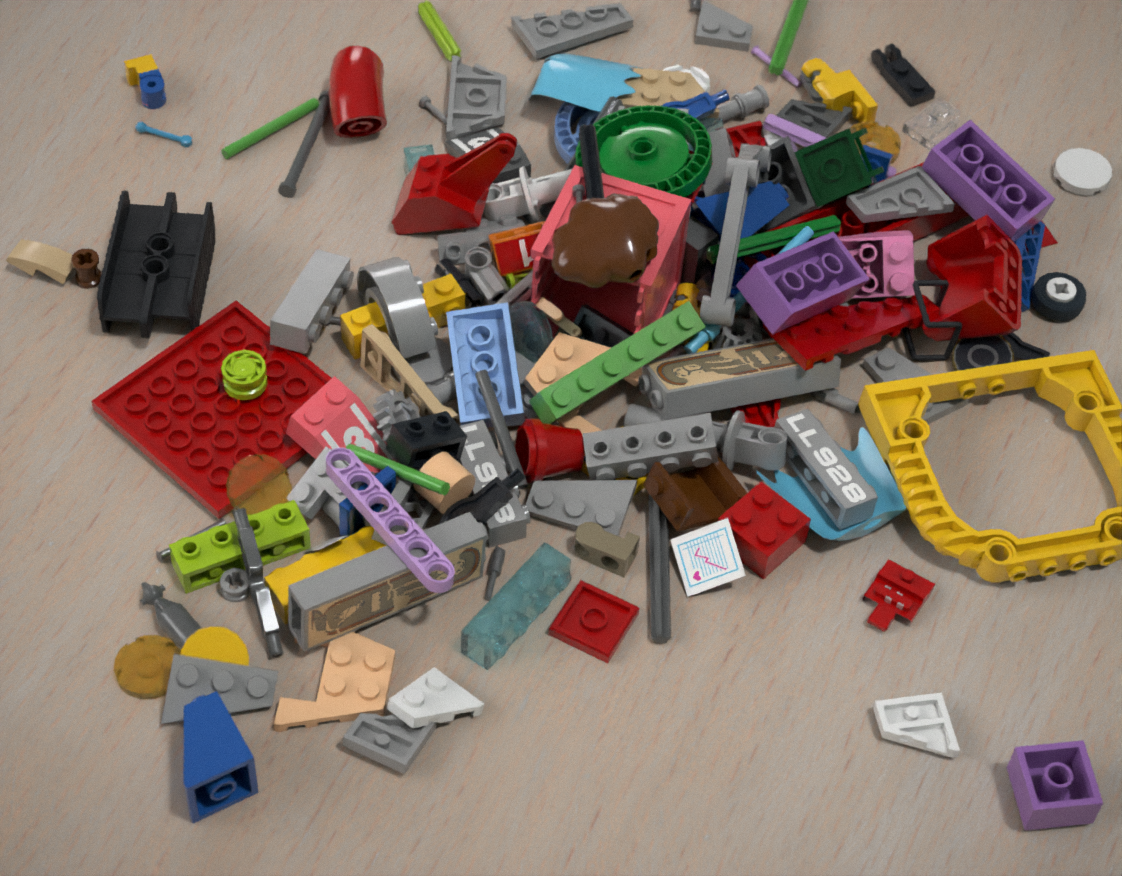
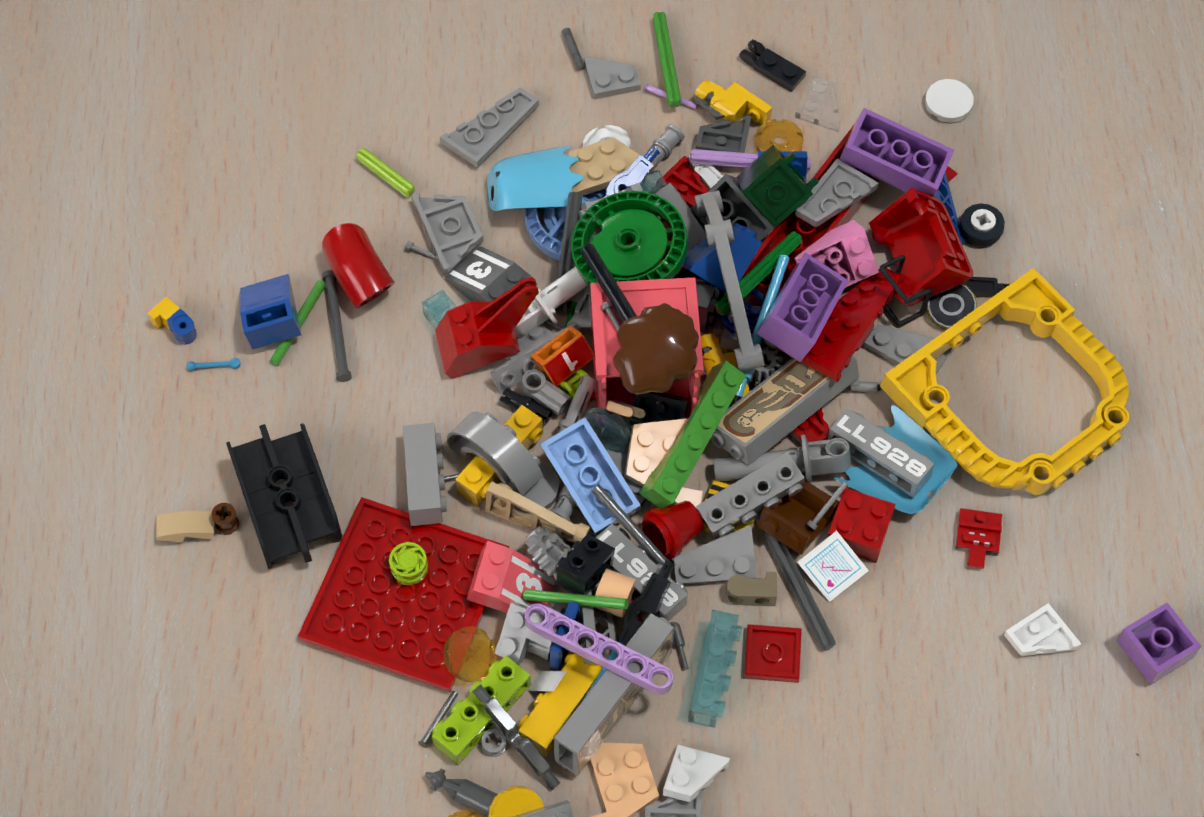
camera: 20 degrees left, 10 degrees up
(243, 105) = (269, 312): none -> blue slope
(707, 506) = (812, 524): none -> light grey piece

